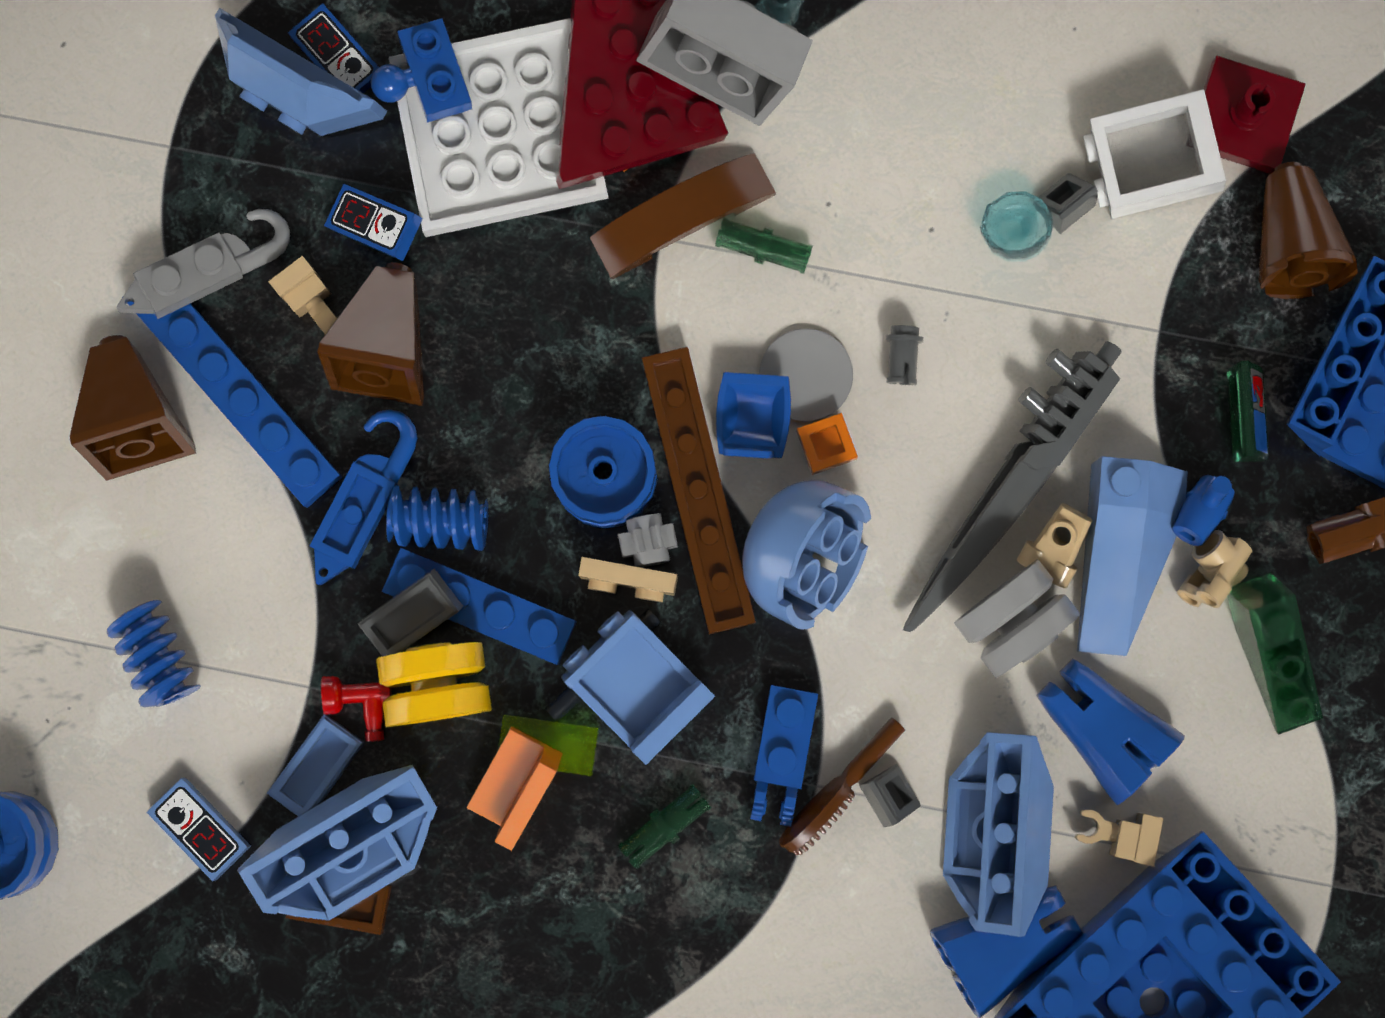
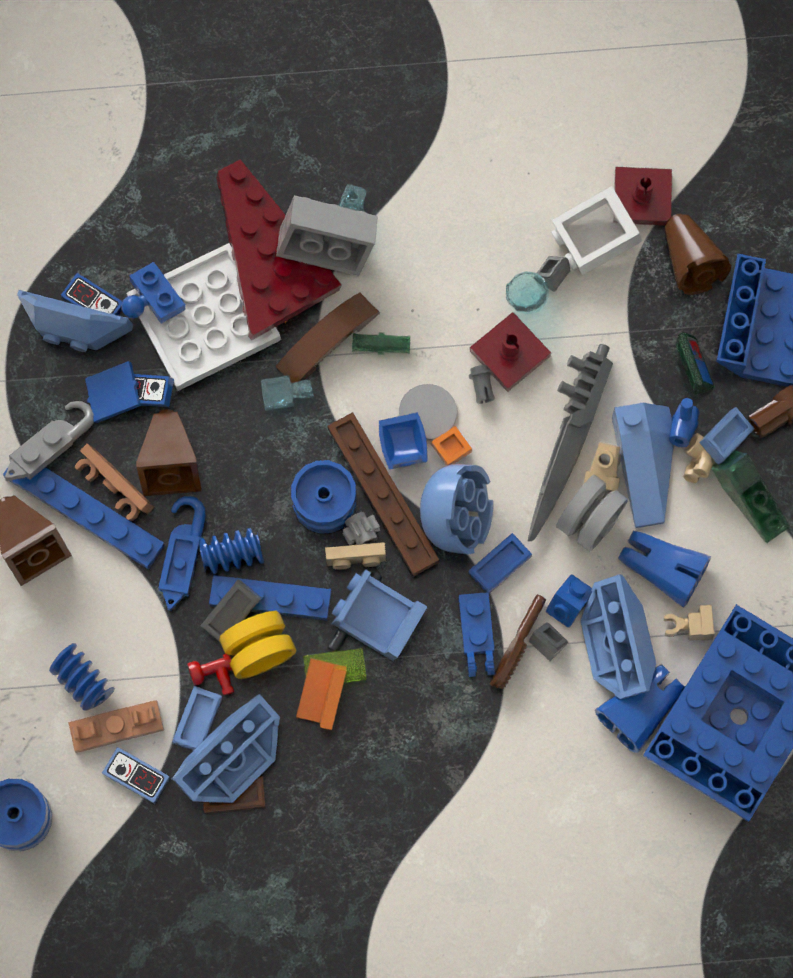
camera: 20 degrees left, 10 degrees down
(189, 743) = (116, 726): none -> nougat plate
(289, 356) = (114, 481): none -> nougat plate
(304, 292) = (113, 441): tan piece -> none
(325, 211) = (112, 392): none -> blue piece
(584, 282) = (279, 392): none -> clear light blue plate
(664, 826) = (419, 695): clear green pin -> none
(850, 651) = (500, 563): none -> blue tile
(942, 742) = (569, 600): none -> blue bracket
(962, 313) = (510, 351): none -> dark red tile
(1267, 547) = (726, 435): none -> medium blue tile

